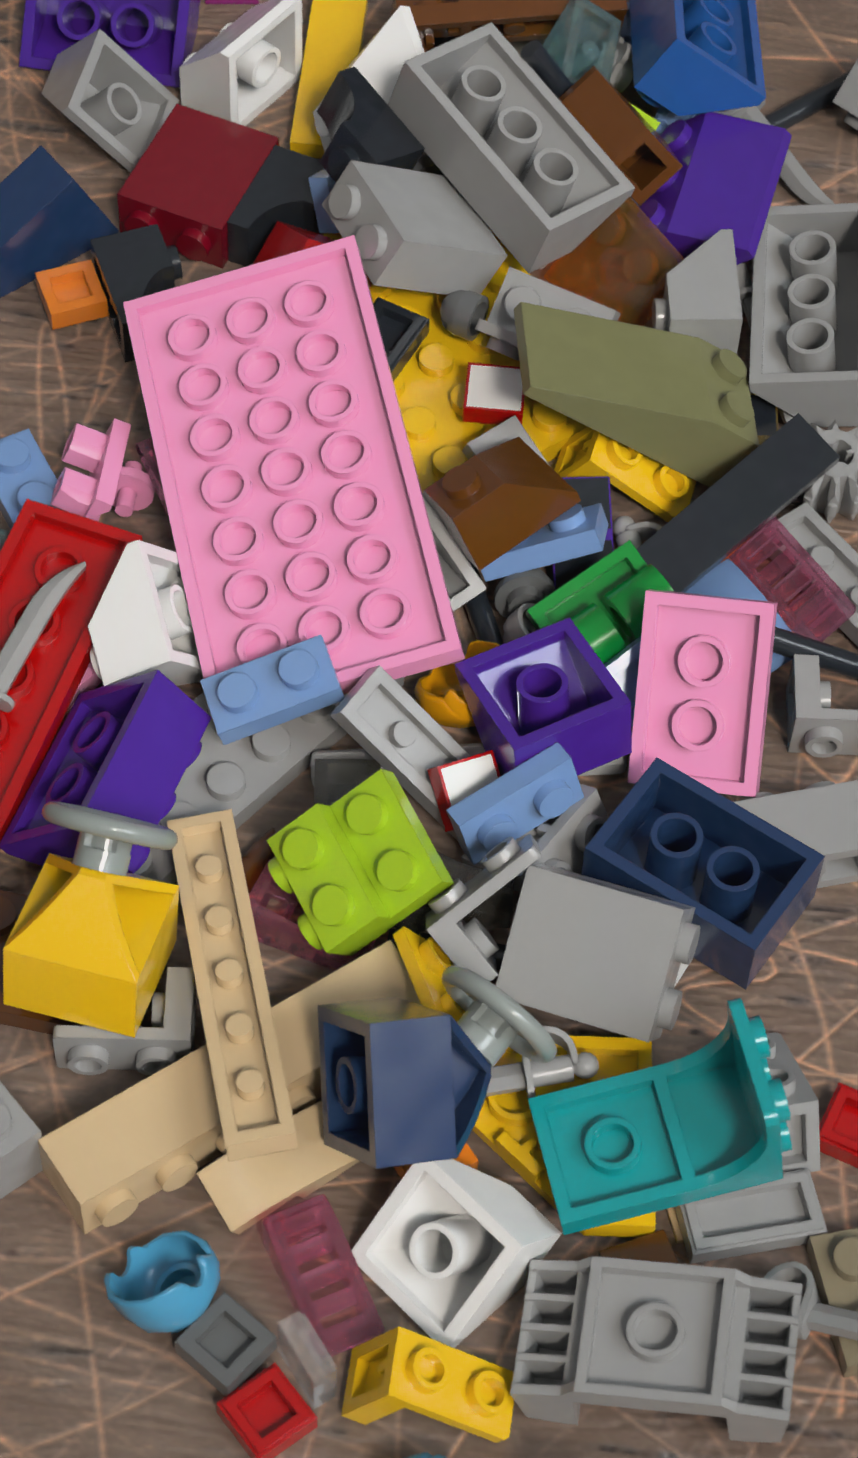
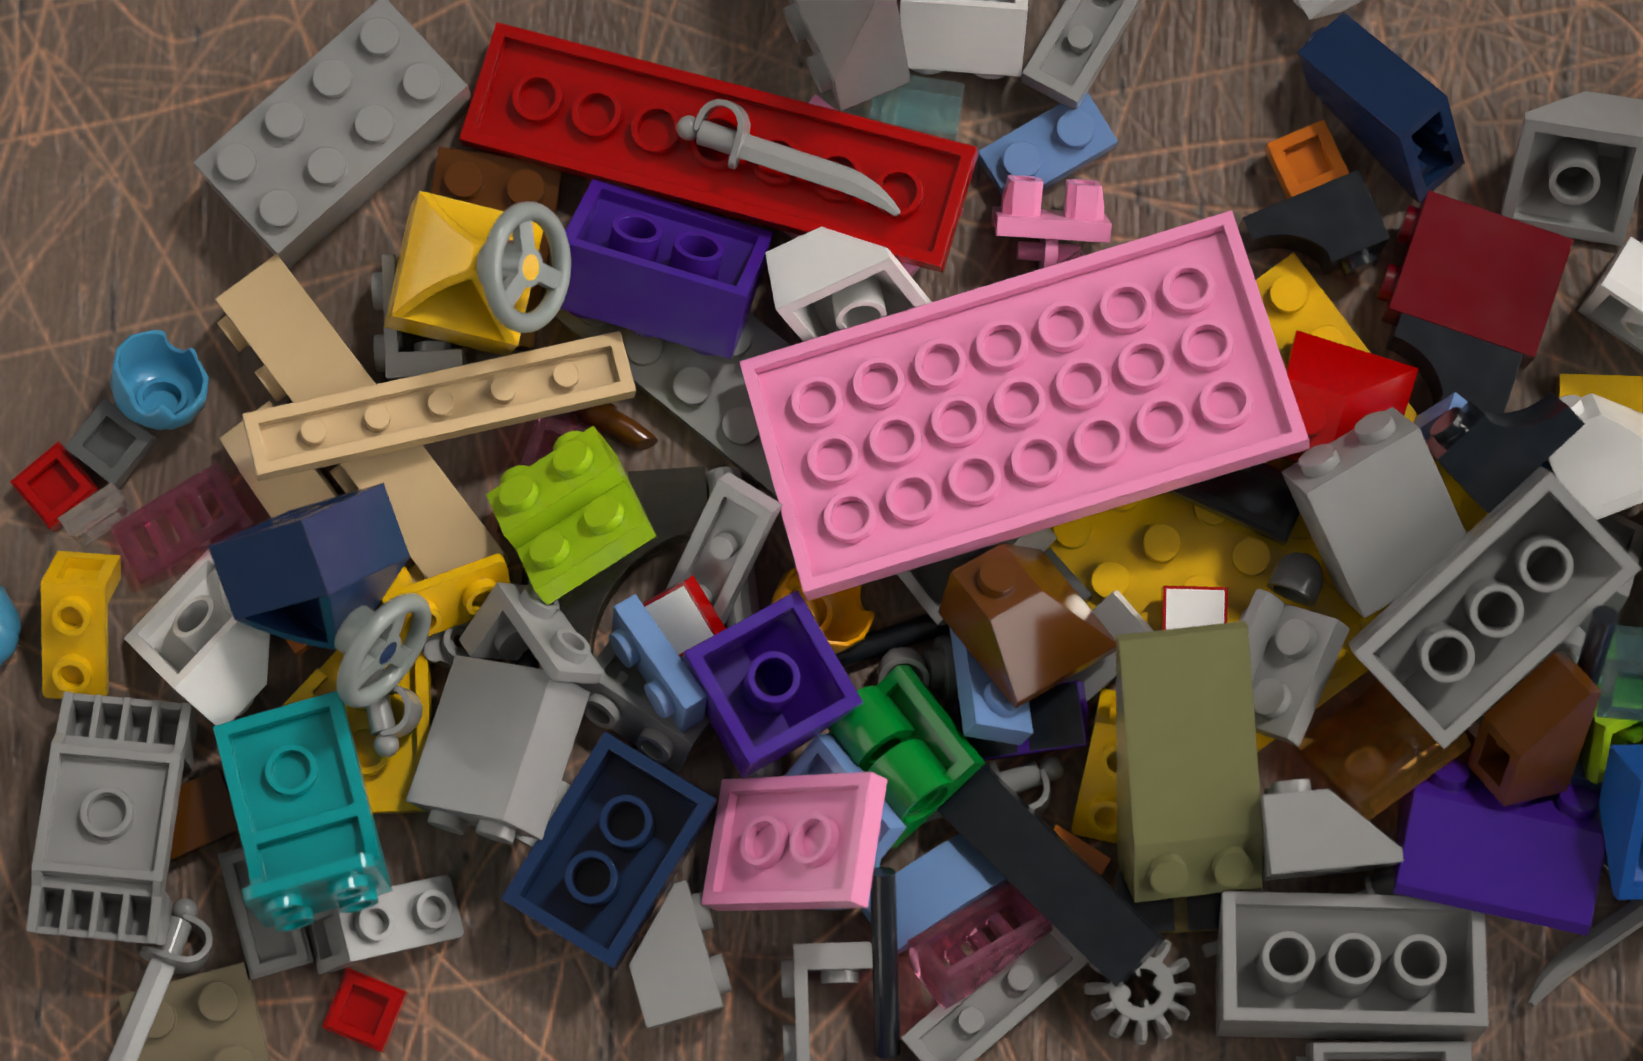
camera: 90 degrees right, 25 degrees up
(272, 689) = (758, 414): medium blue plate -> none

